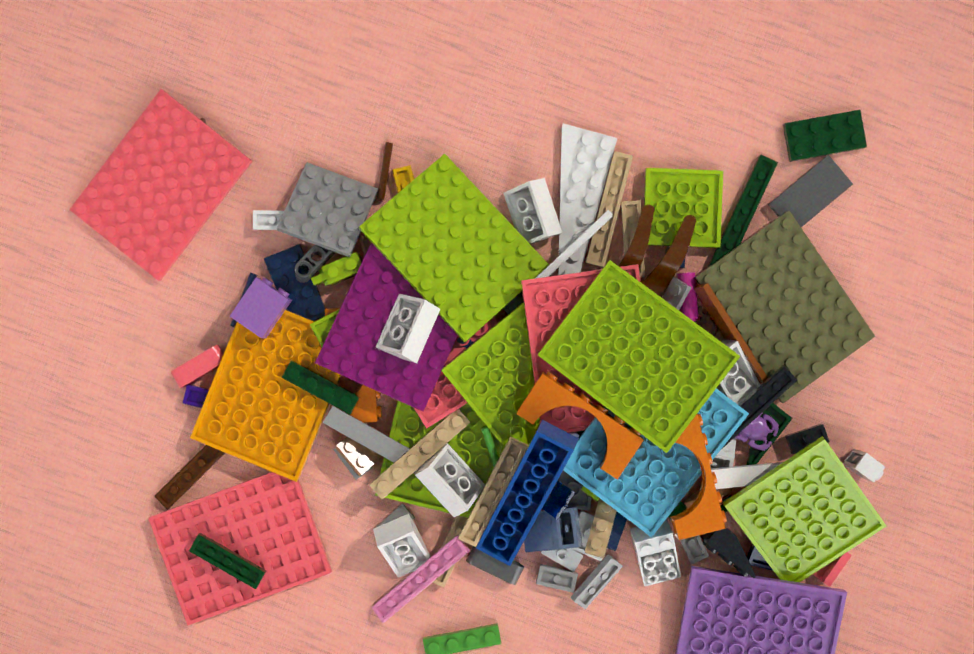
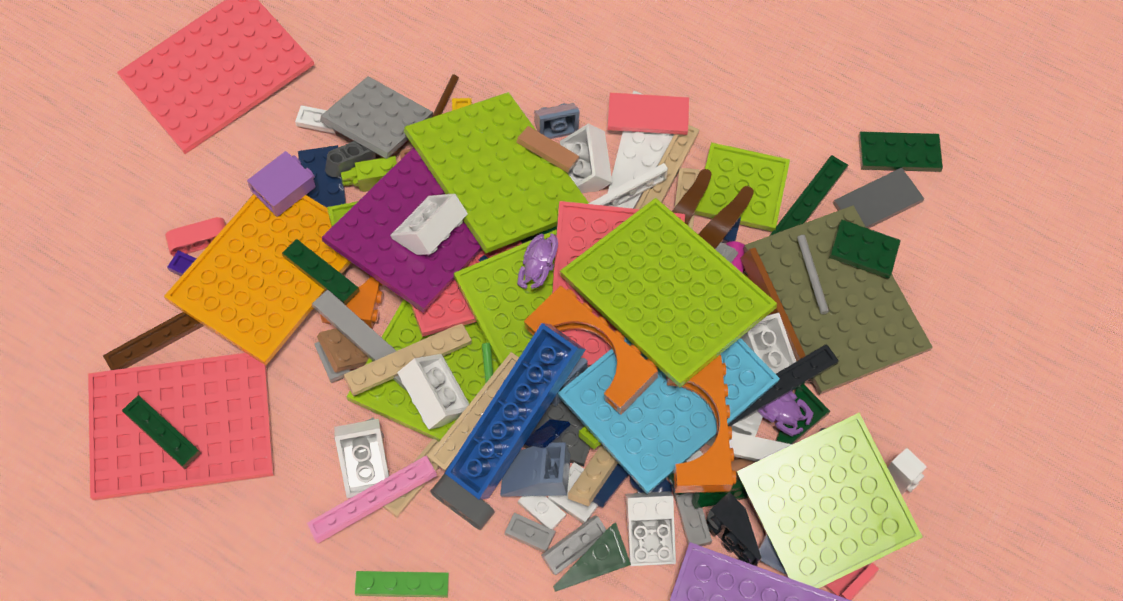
camera: 10 degrees right, 25 degrees down
(496, 215) = (548, 149): none -> nougat tile
(497, 174) = (557, 120): none -> sand blue slope
(515, 345) = (538, 260): none -> medium lavender shield
(582, 150) = (648, 113): none -> coral tile
(619, 589) = (601, 558): none -> dark green wing
(762, 295) = (813, 274): none -> light grey bar
(806, 257) = (865, 249): none -> dark green plate

